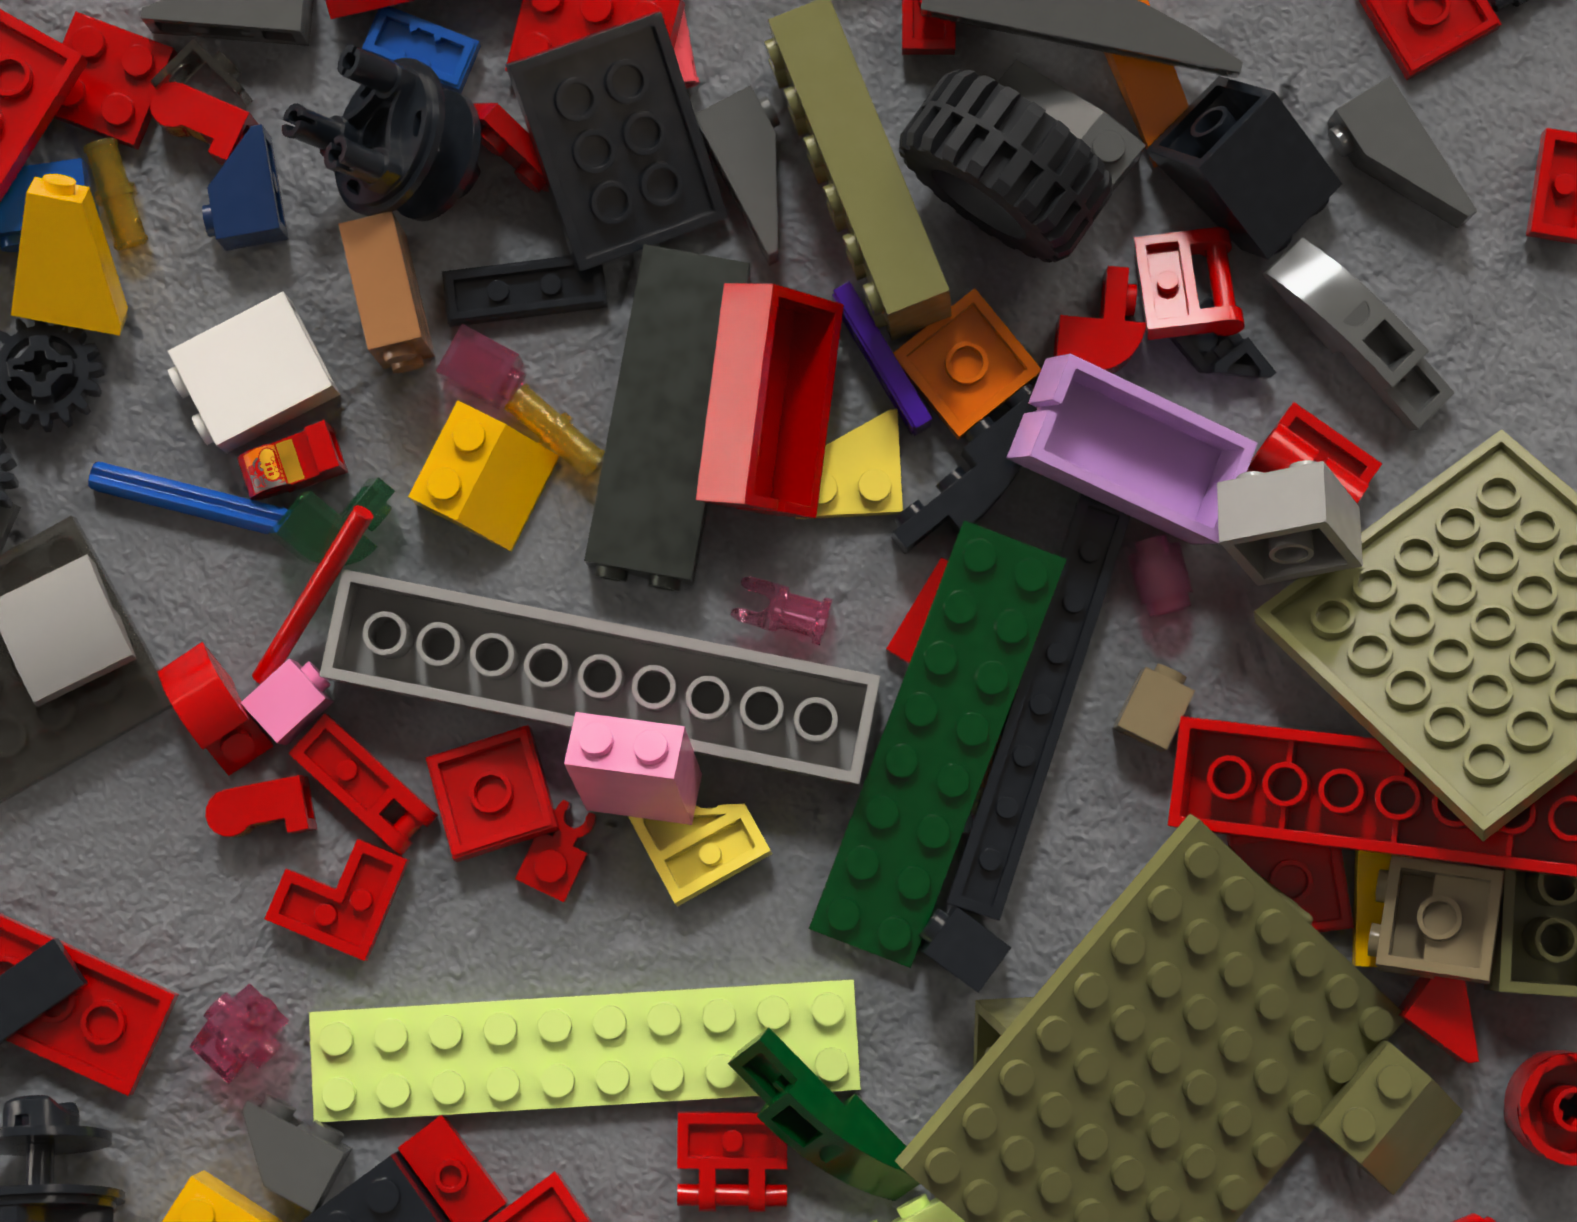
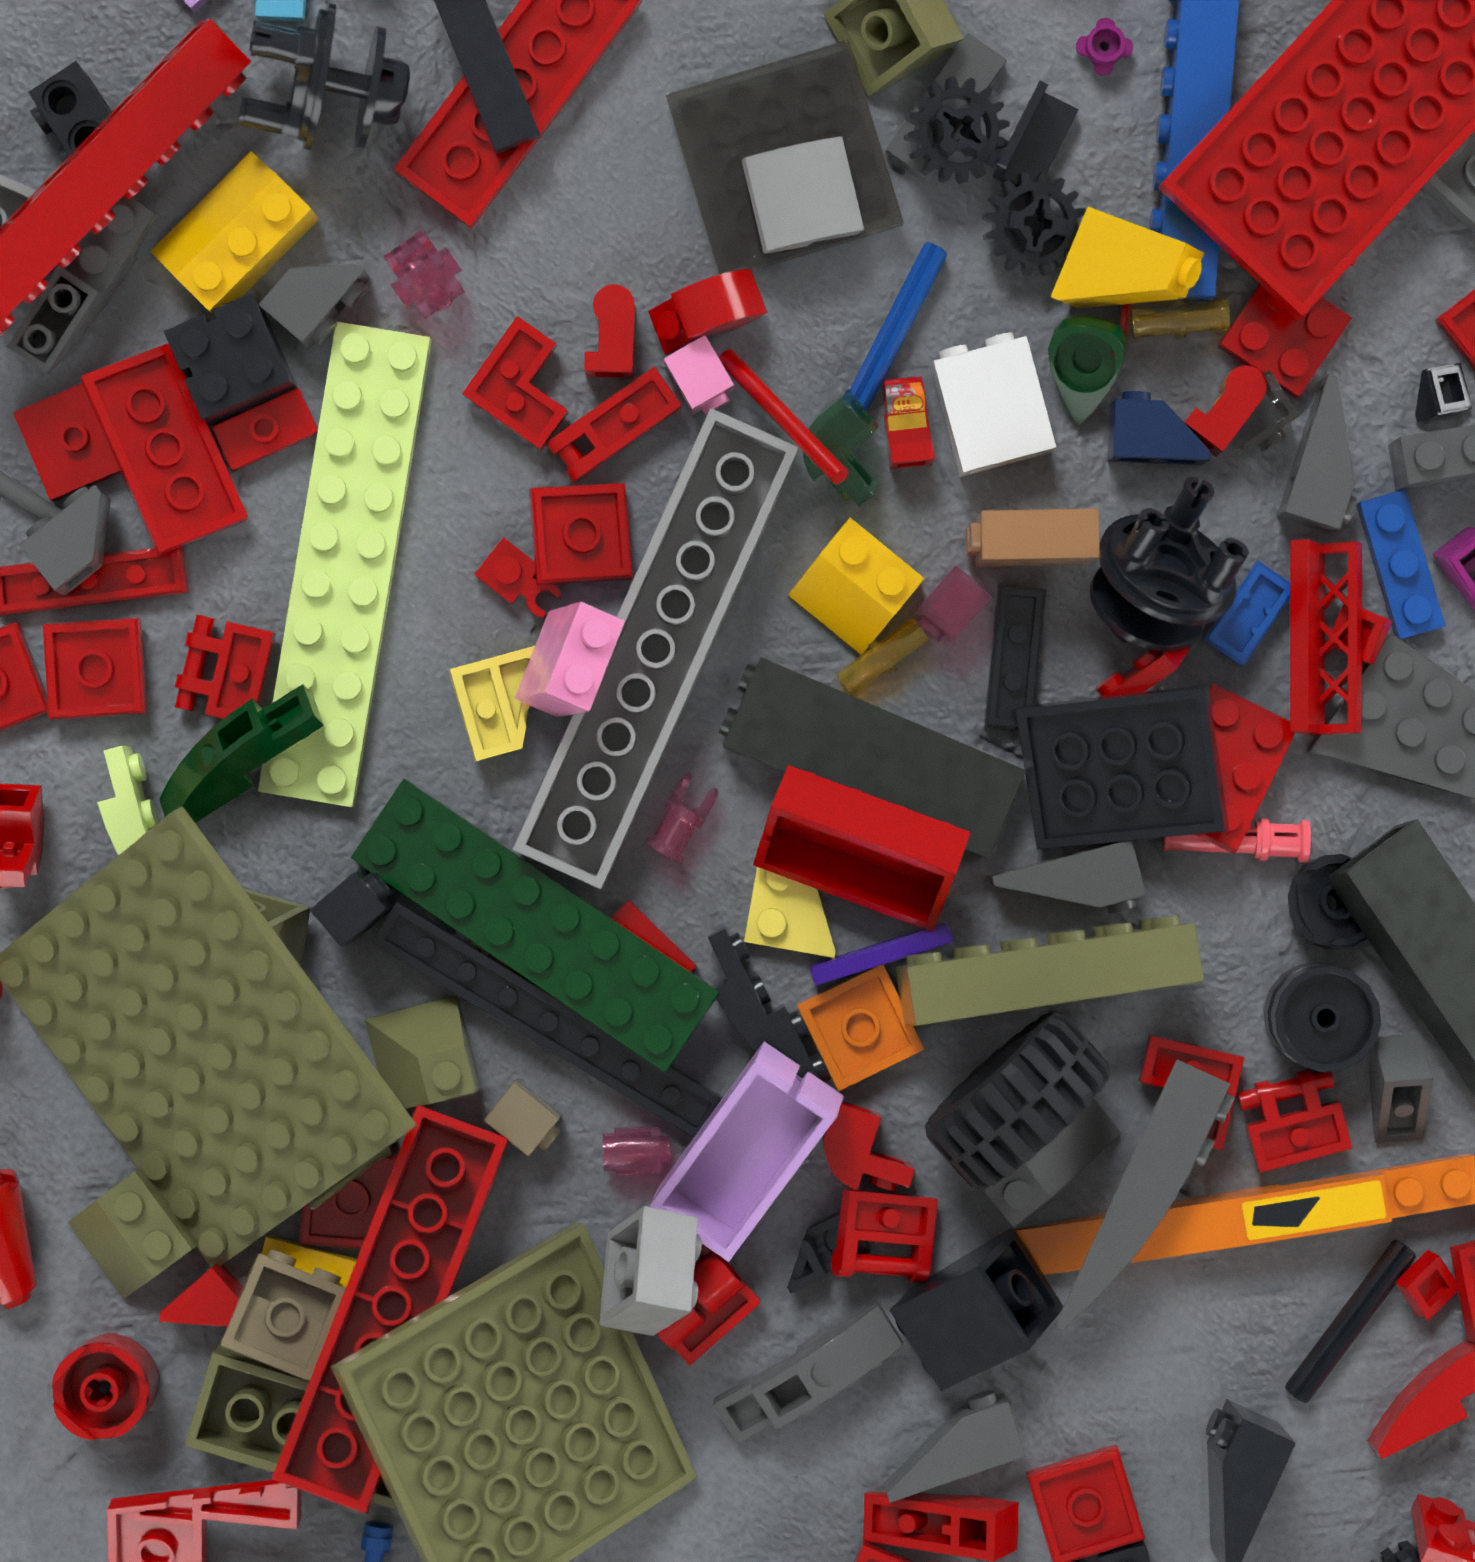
camera: 100 degrees right, 5 degrees up
(181, 281) = (1087, 359): none -> dark green piece
(1106, 835) = (424, 1052): none -> olive slope
(1486, 151) = (943, 1524): none -> red slope

